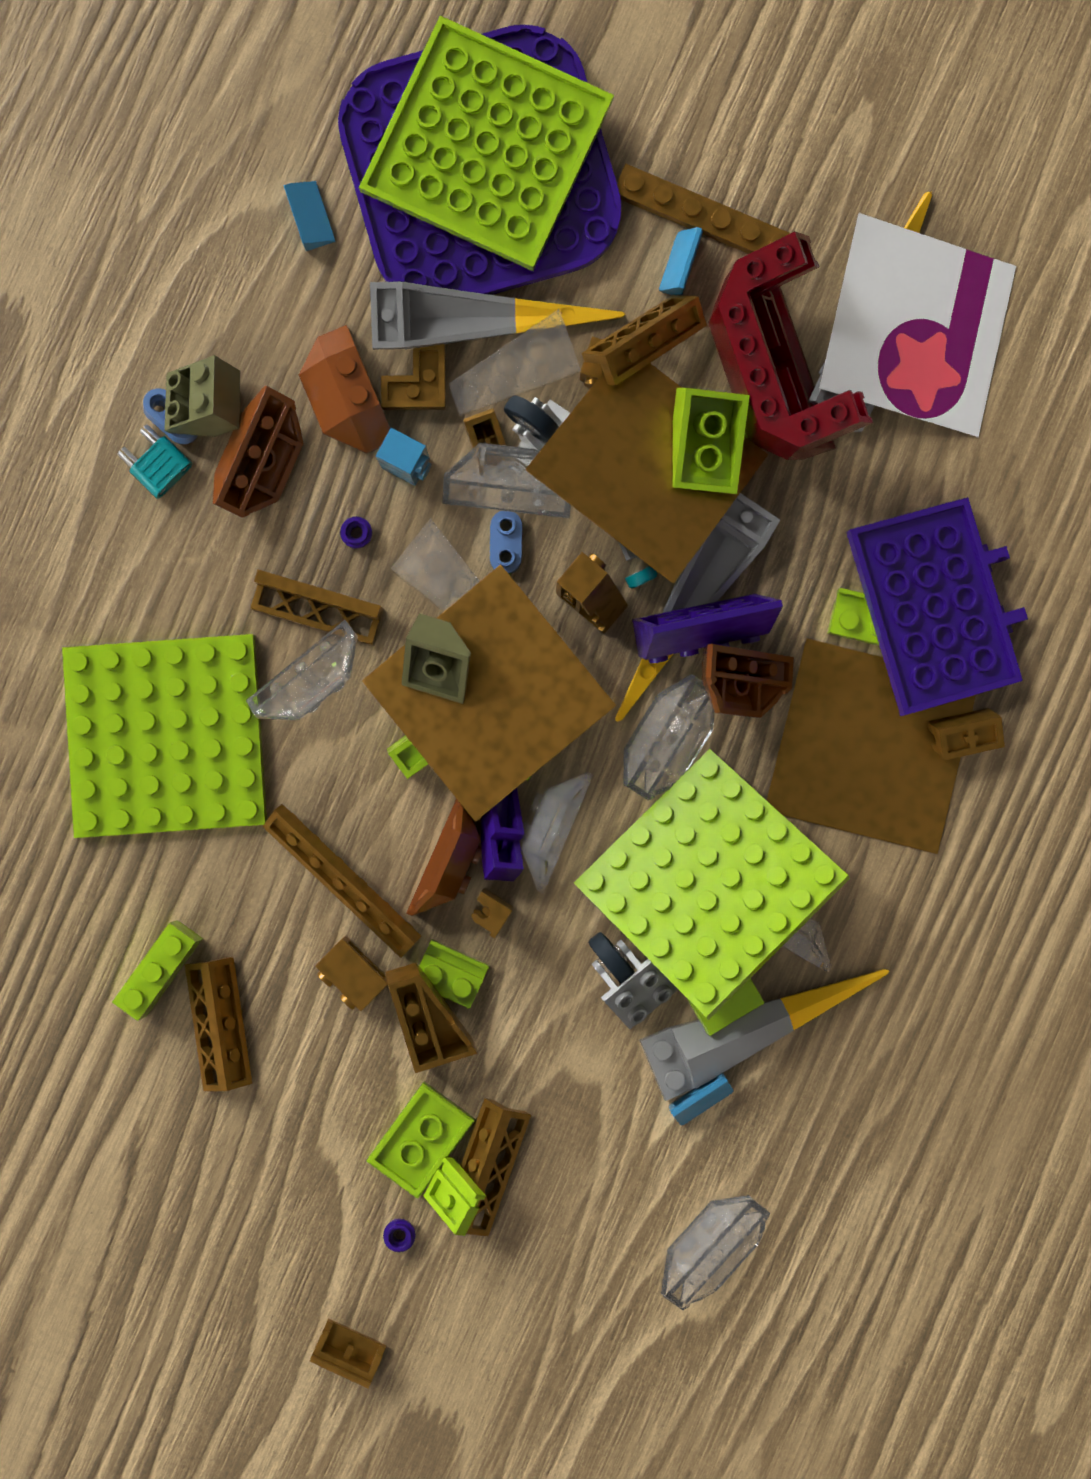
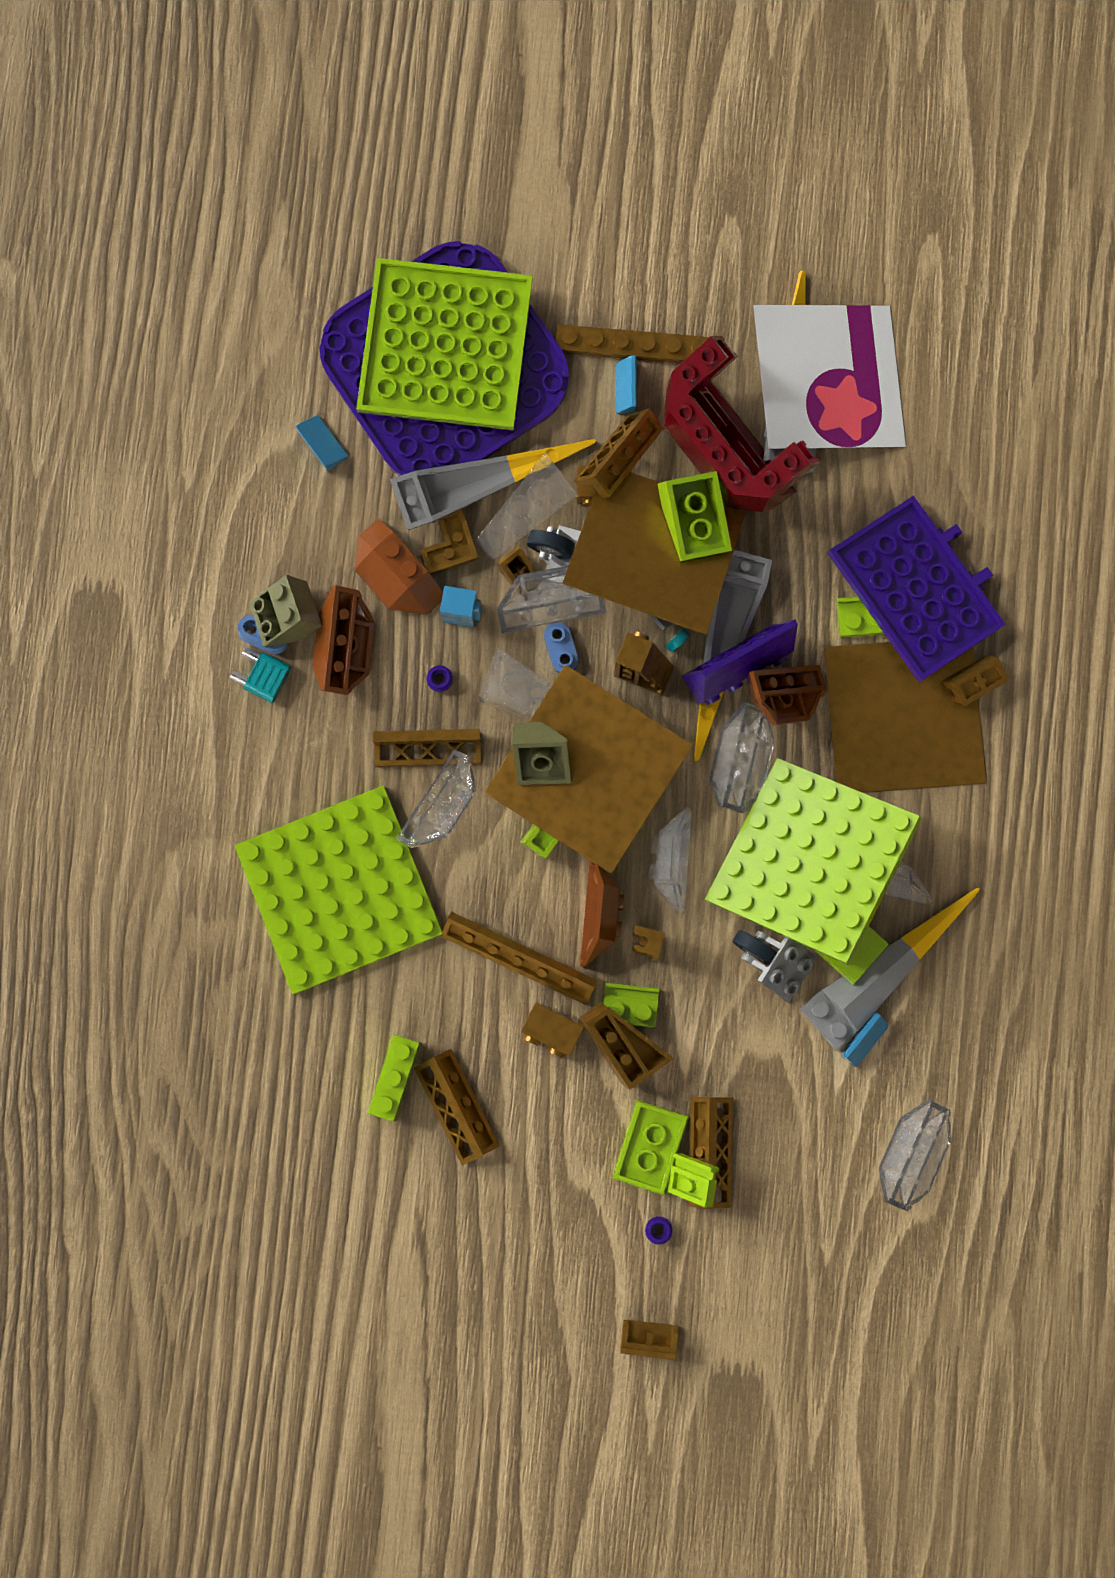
camera: 15 degrees left, 5 degrees down
(501, 839) = (635, 882): dark purple slope -> none

